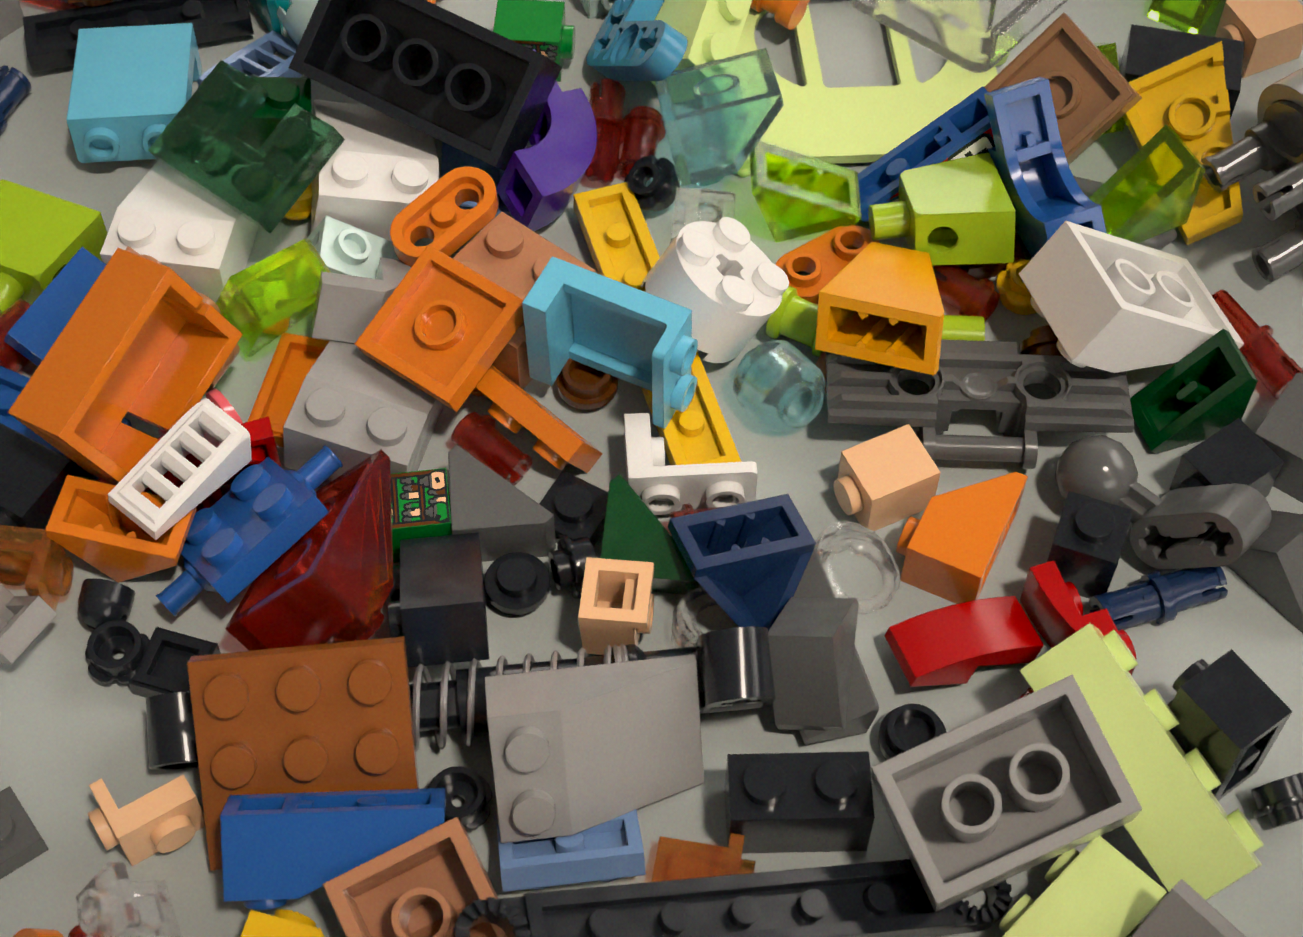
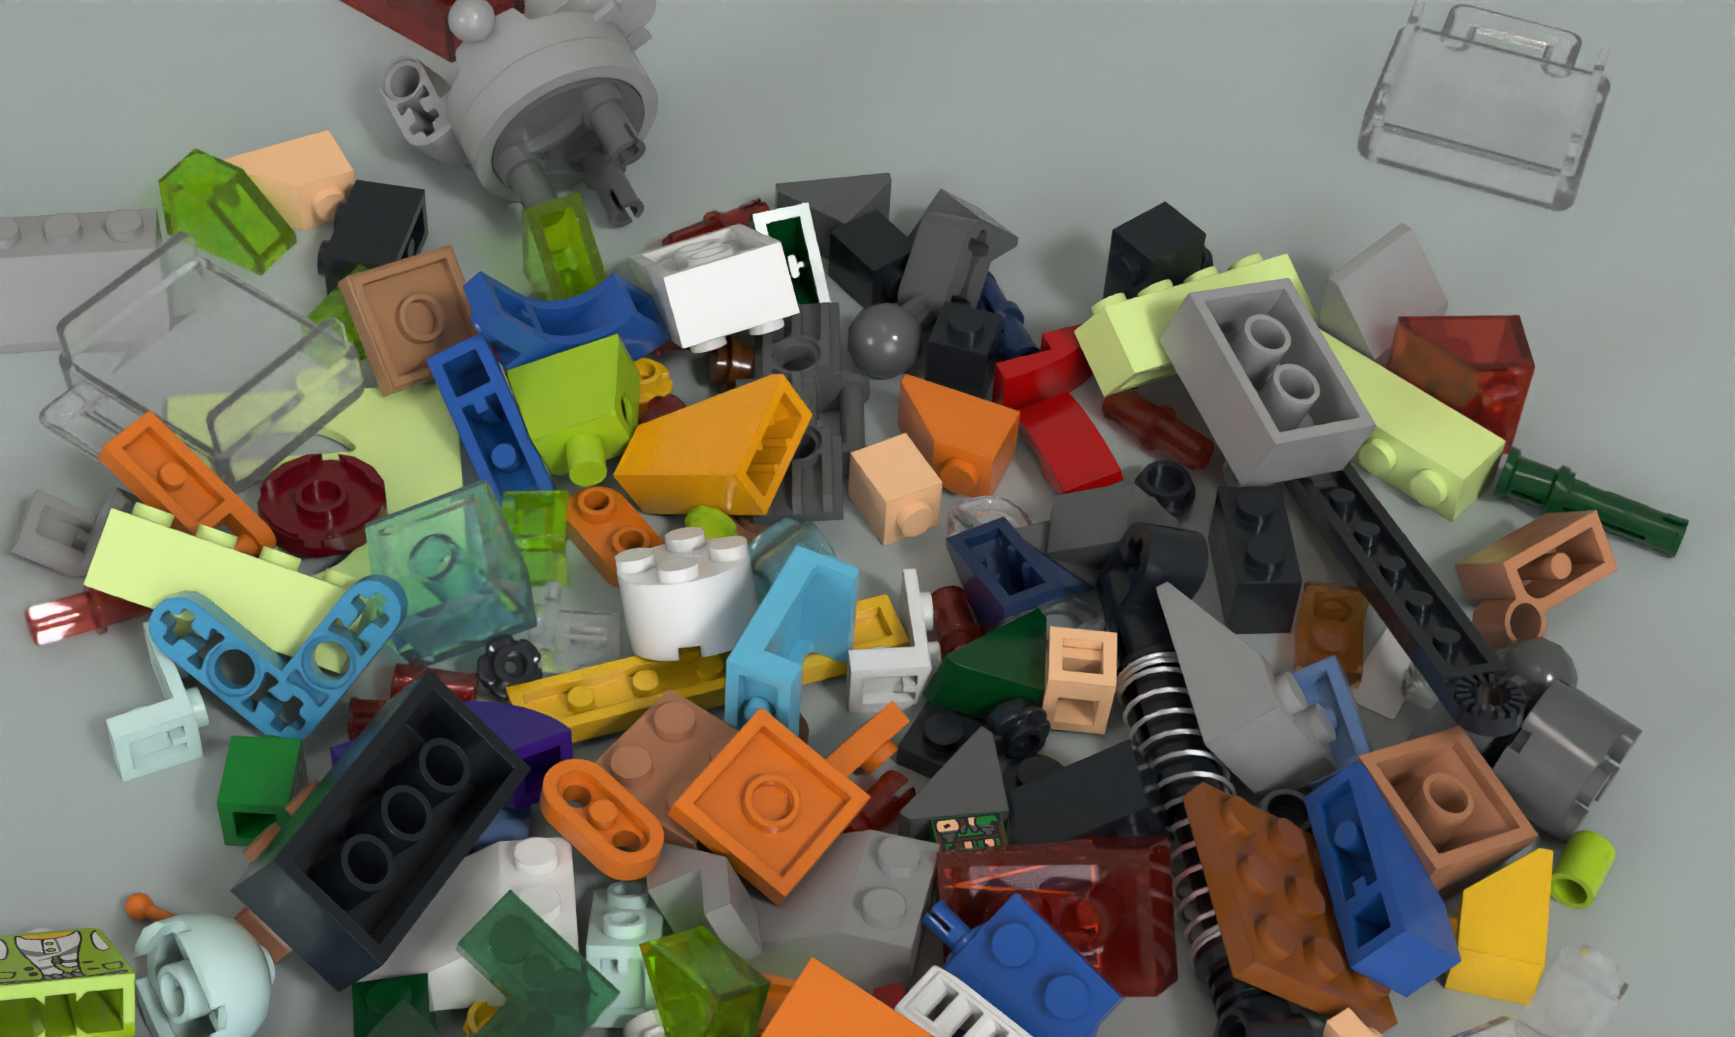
camera: 95 degrees left, 10 degrees down
(839, 56) = (321, 504): none -> dark red tile
(1196, 104) = (480, 232): yellow wing -> none

